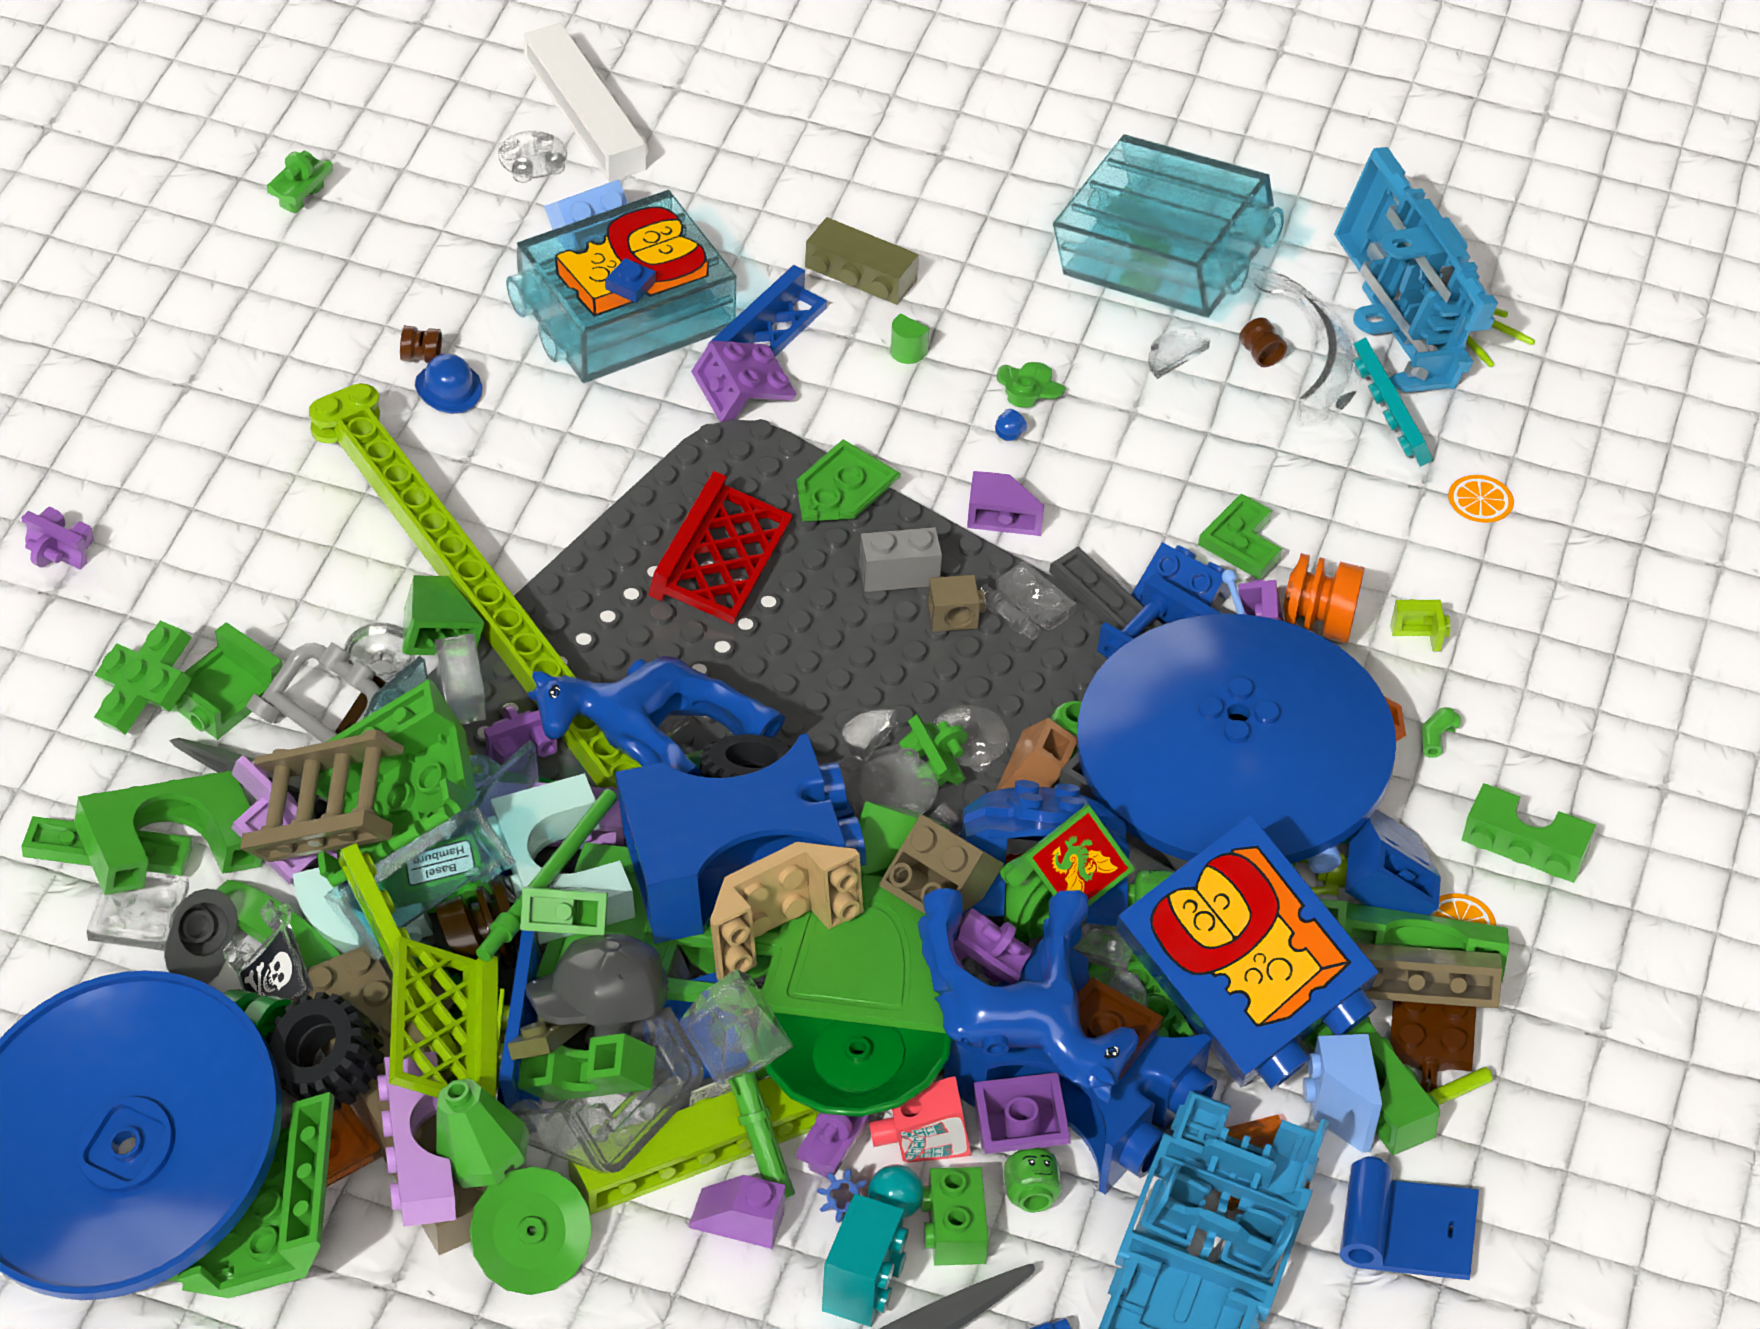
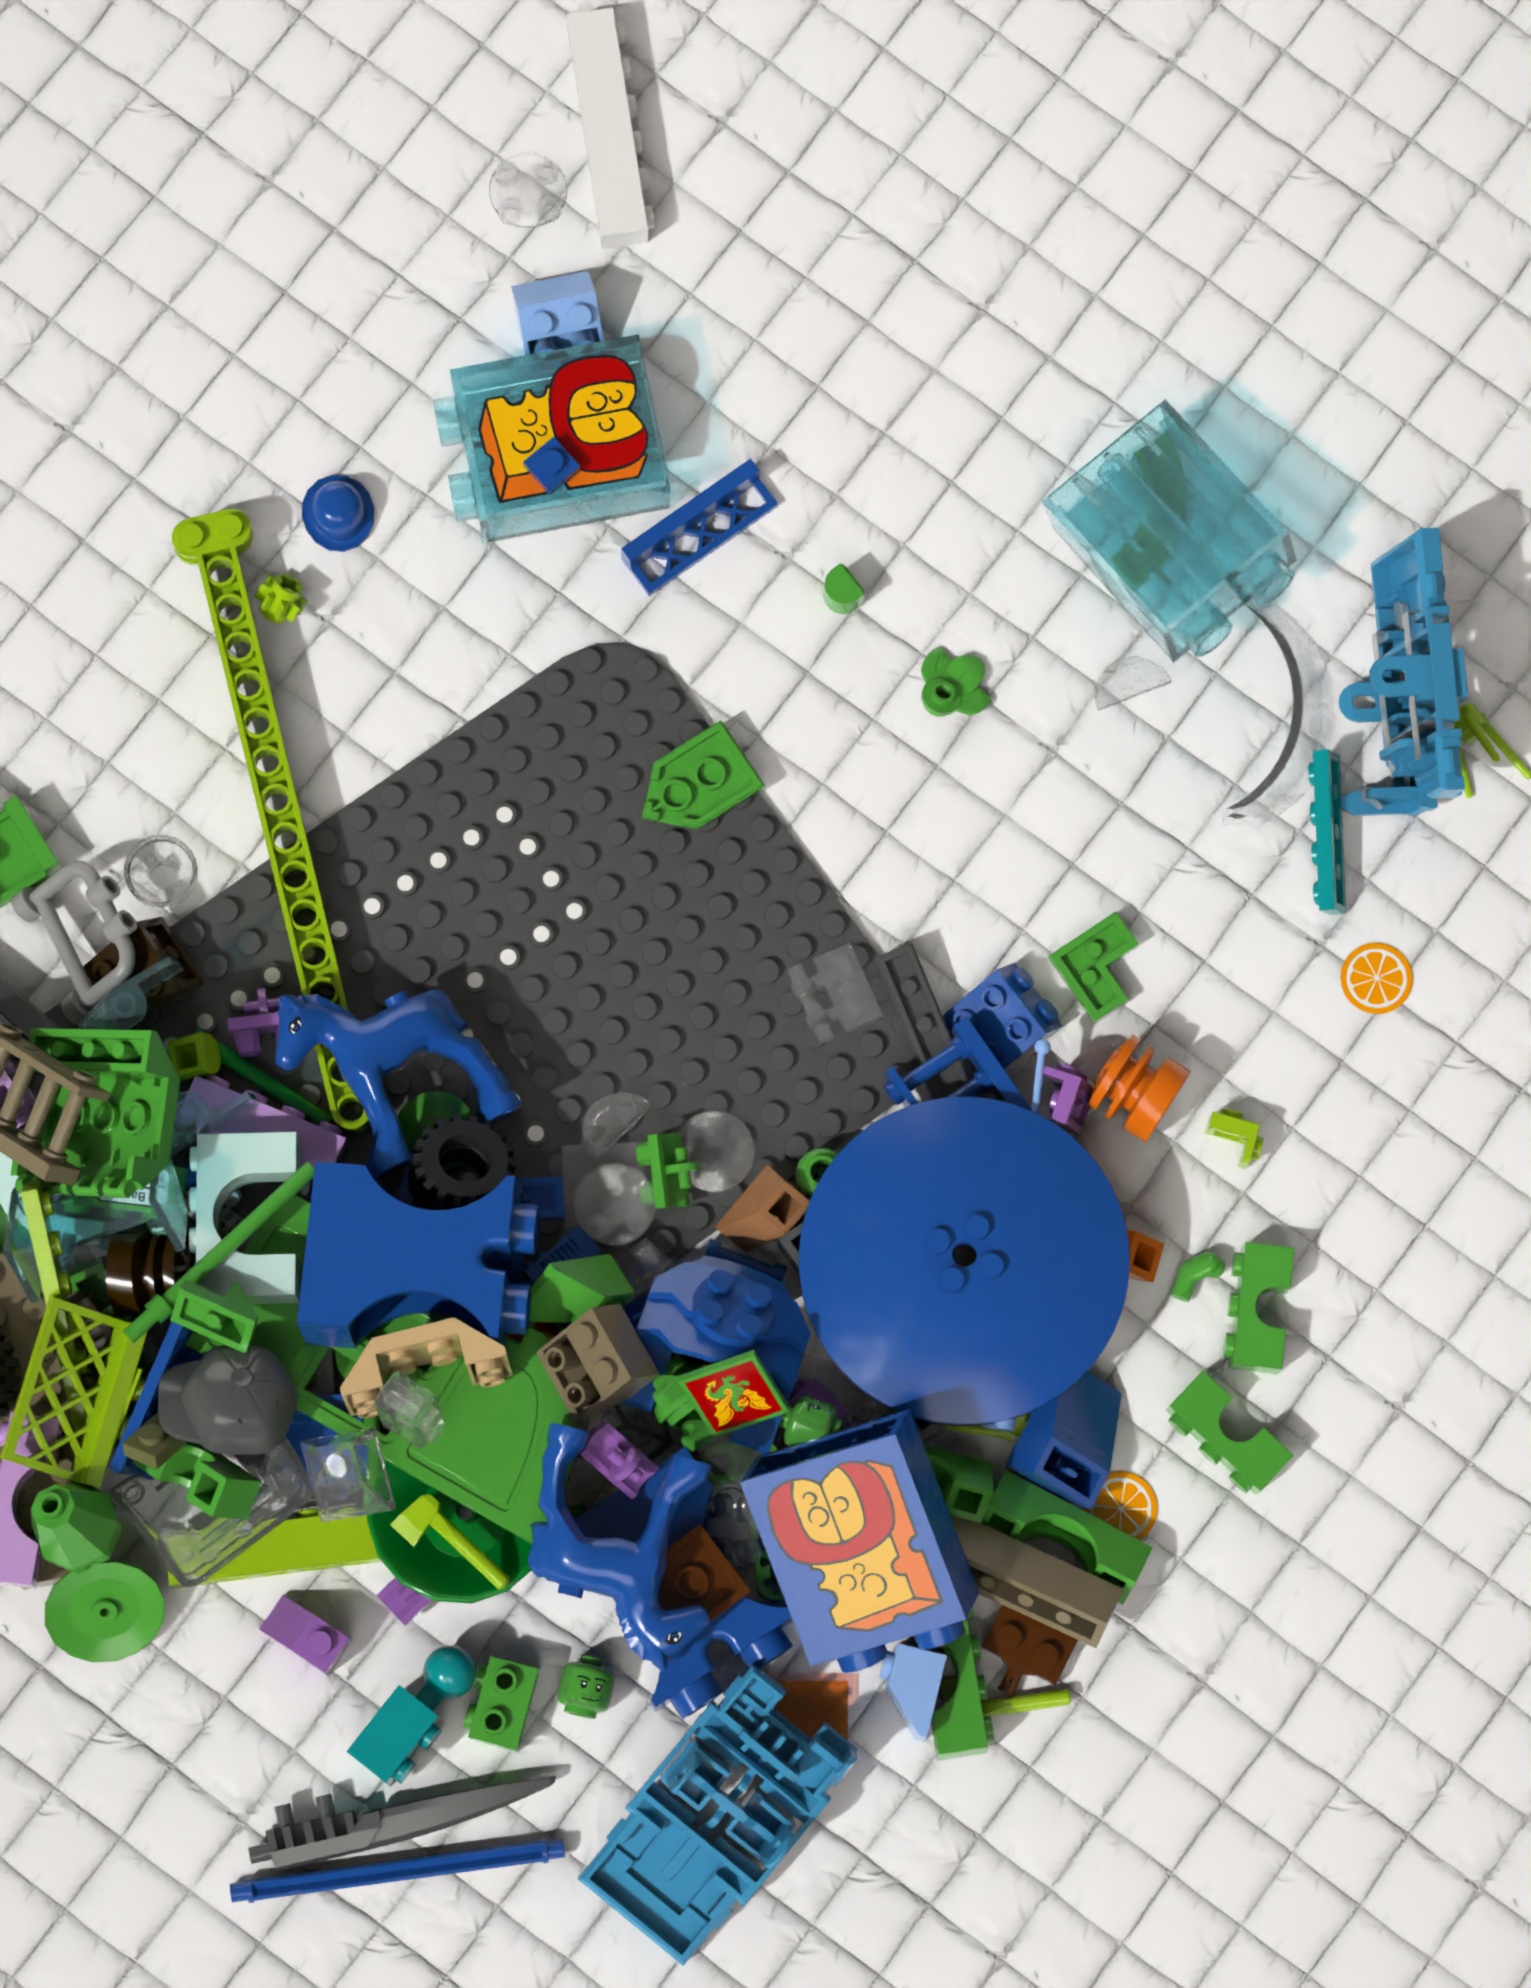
camera: 15 degrees right, 30 degrees up
(298, 179) = (259, 169): bright green hips -> none
(420, 344) = (322, 452): reddish brown wheel -> none
(421, 444) = (281, 598): none -> lime gear
(435, 612) = (226, 852): bright green slope -> none
(460, 677) = (222, 950): clear slope -> none
(689, 543) = (515, 817): red fence -> none
(739, 371) = (647, 598): medium lavender bracket -> none
(758, 1126) = (343, 1562): bright green pin -> none
(781, 940) = (409, 1410): none -> clear brick
(823, 1042) = (425, 1512): none -> lime piece
(836, 1185) = (404, 1652): gear -> none
(861, 260) = (831, 461): olive brick -> none
(899, 559) = (719, 909): light grey brick -> none
(927, 1125) = (523, 1605): coral torso -> none
(954, 603) = (757, 981): dark tan brick -> none
(1003, 505) = (857, 850): medium lavender slope -> none
(1010, 425) = (908, 742): blue hinge -> none
(1020, 1113) = (588, 1636): medium lavender slope -> none
(1261, 337) = (1226, 703): reddish brown wheel -> none
(1407, 1224) = (916, 1834): blue door -> none
(1512, 761) = (1253, 1343): none -> bright green arch

